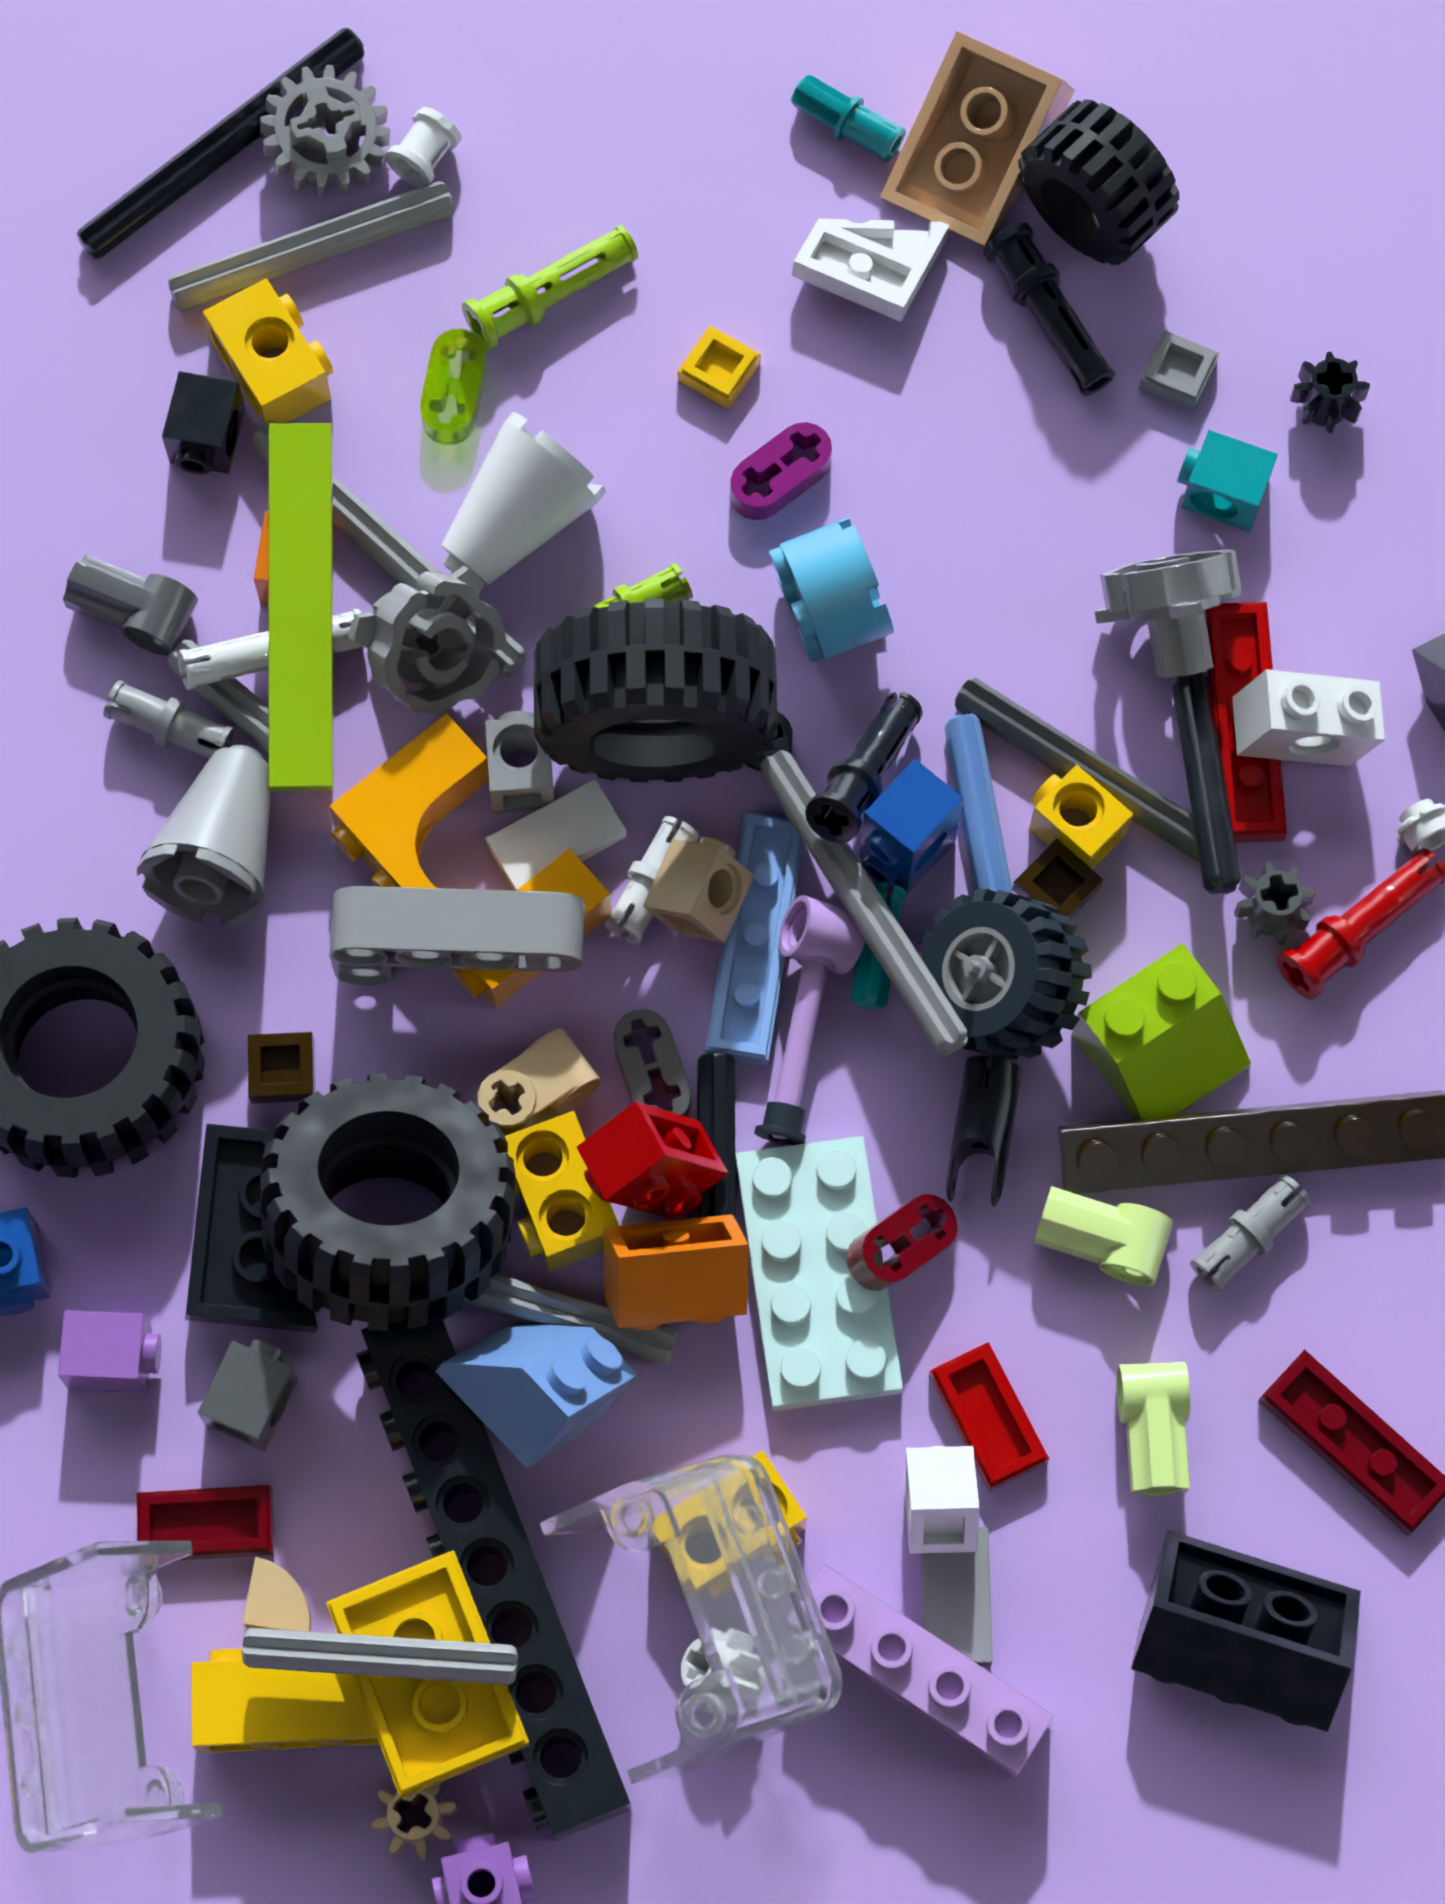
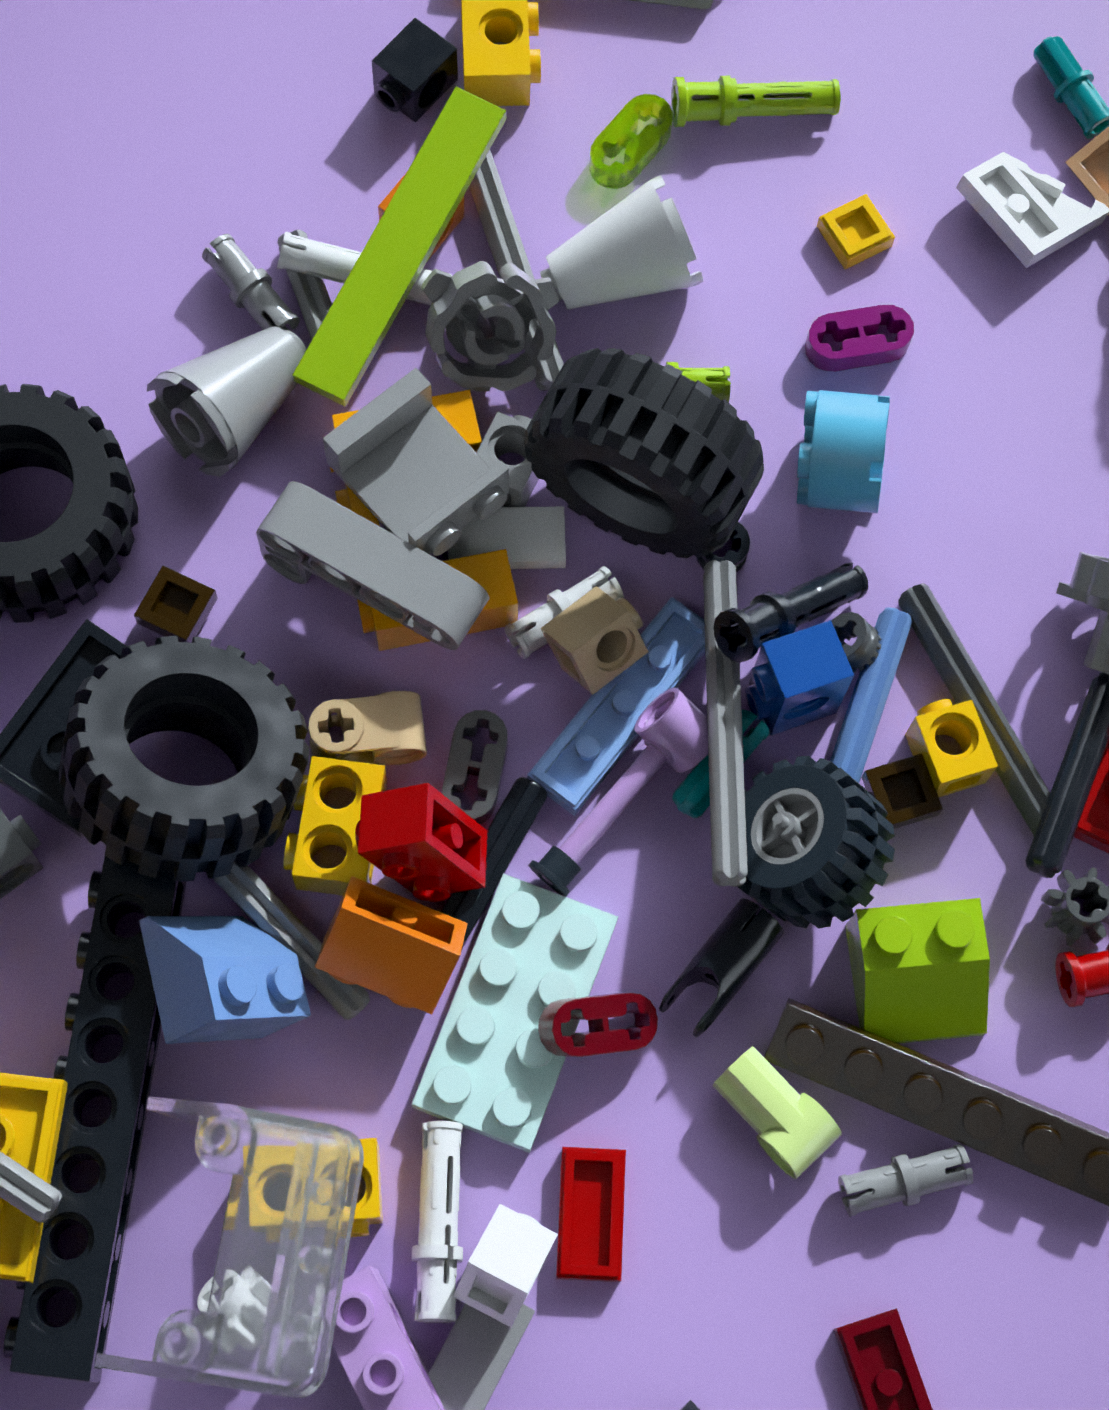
camera: 25 degrees right, 0 degrees up
(145, 610) = (282, 191): dark grey piece -> none
(443, 816) = (415, 467): none -> light grey panel
(869, 1519) = (438, 1224): none -> white pin
(930, 750) = (854, 625): none -> dark grey bush
(1154, 1406) = (734, 1290): yellowish green piece -> none

